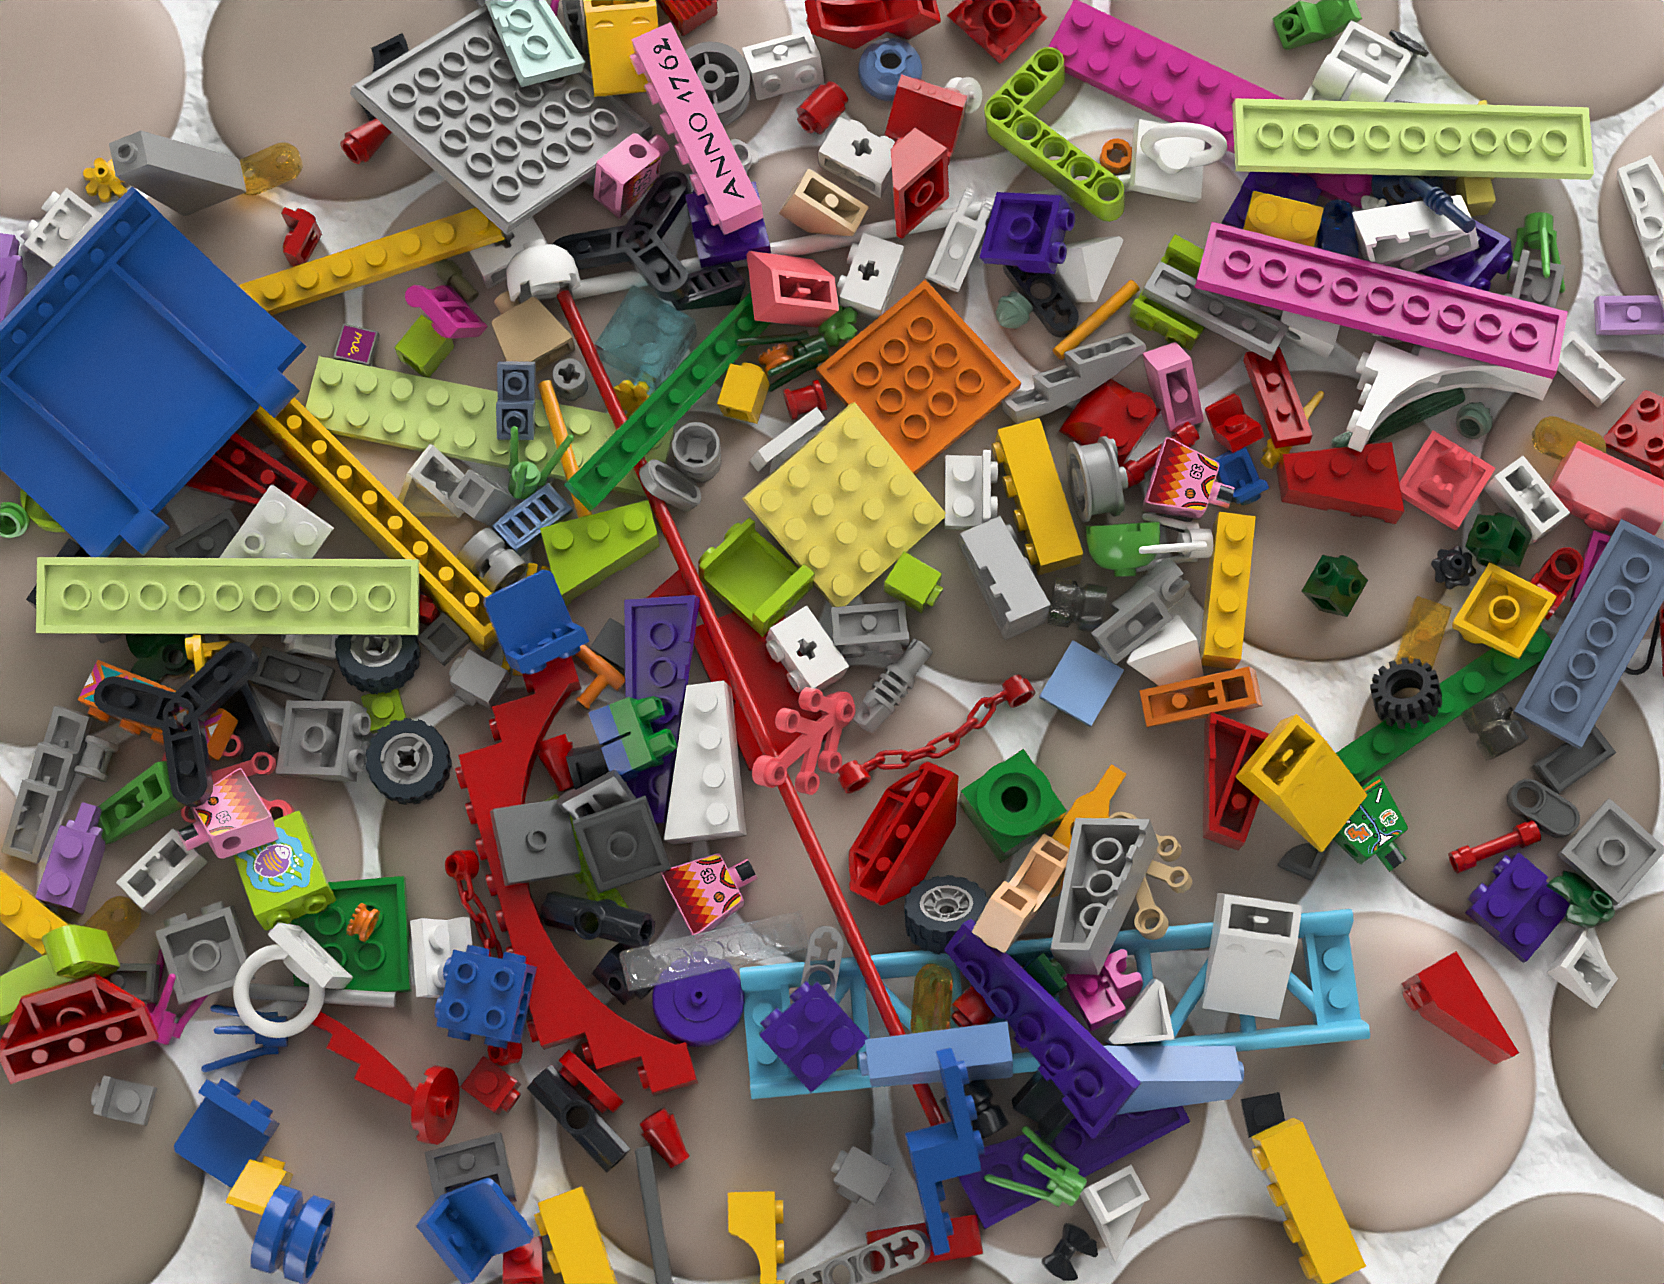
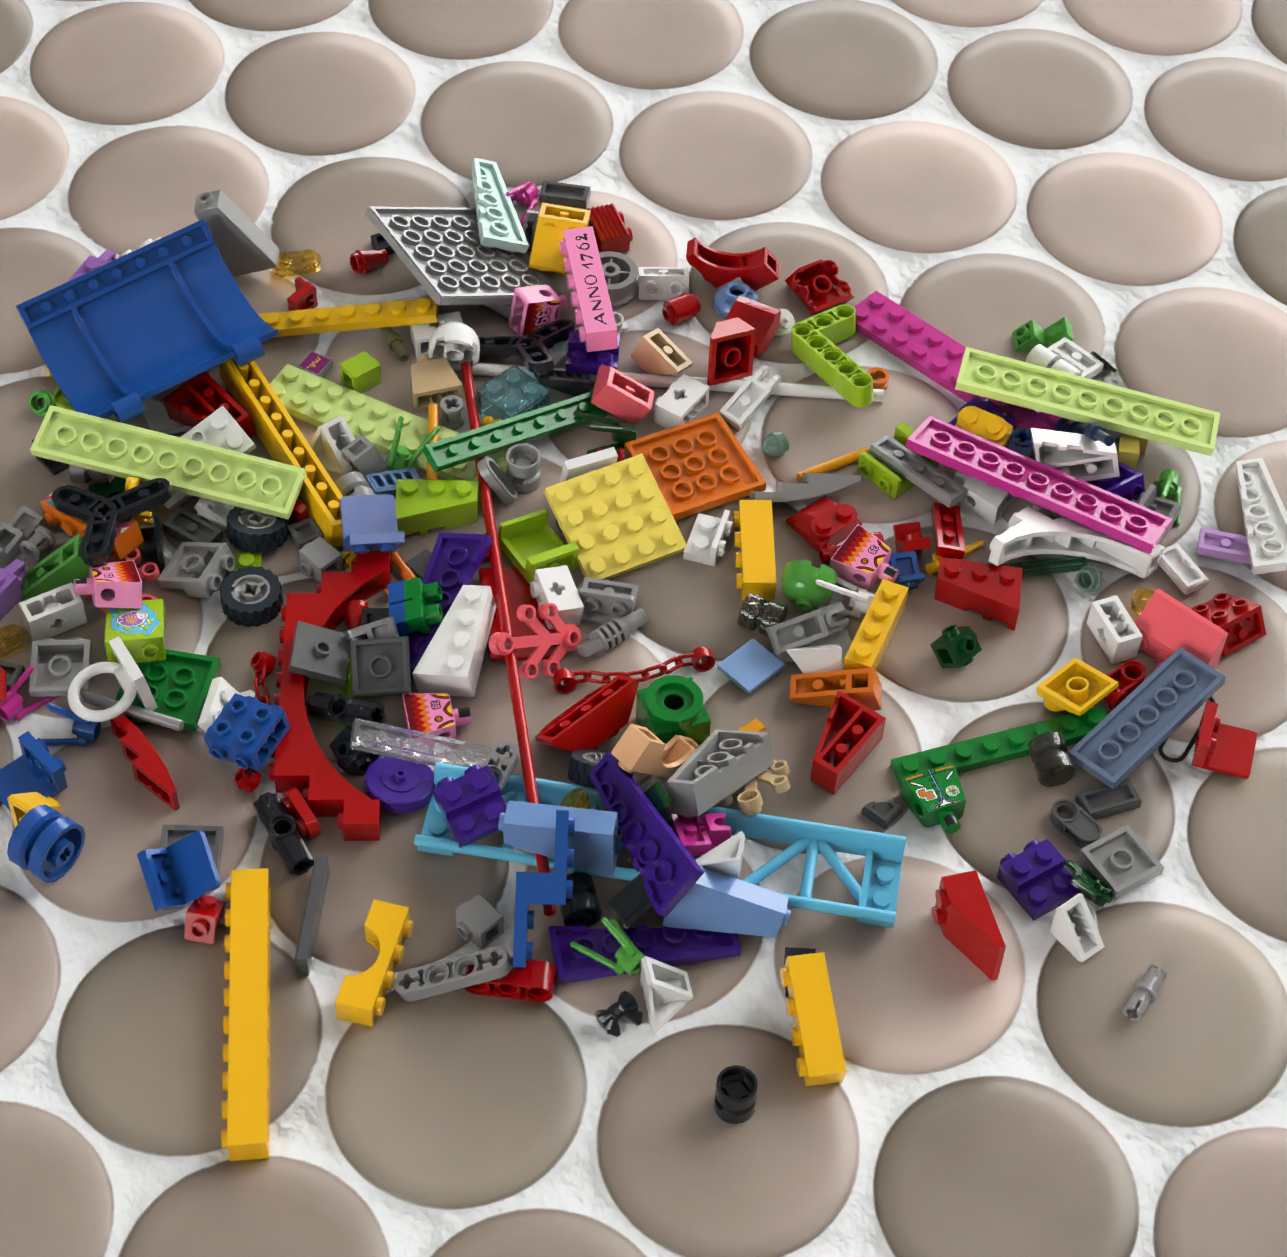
camera: 15 degrees right, 25 degrees down
(363, 923) = (179, 671): orange bush -> none
(435, 1105) = (183, 792): red plate -> none
(447, 310) = (382, 352): dark pink plate -> none
(492, 1086) = (229, 802): red bracket -> none
(515, 399) = (411, 407): sand blue slope -> none
(664, 1136) = (341, 861): red cone -> none
(743, 392) = (568, 443): yellow brick -> none
(775, 357) = (603, 439): orange bush -> none
(839, 153) = (692, 337): white brick -> none
(839, 326) = (650, 424): bright green plant -> none
(914, 583) = (650, 576): lime brick -> none
(1004, 577) = (715, 589): wedge -> none
(1028, 231) = (799, 397): dark purple plate -> none
(1063, 305) = (785, 419): black beam -> none
(1087, 267) = (831, 428): white slope -> none
(1096, 478) = (800, 538): light grey wheel -> none
(1172, 157) = (913, 386): white tile -> none
(1173, 385) = (875, 508): bright pink slope -> none
(1250, 955) = (818, 837): white slope -> none
(1303, 781) = (892, 740): yellow slope -> none
(1409, 709) = (989, 721): black tyre -> none
(1423, 631) = (1013, 699): clear yellow plate -> none
(1444, 480) = (1056, 608): coral plate -> none
(1453, 567) = (1048, 660): black plant -> none
(1467, 858) = (1006, 839): red bar -> none
(1498, 540) = (1086, 645): dark green brick -> none

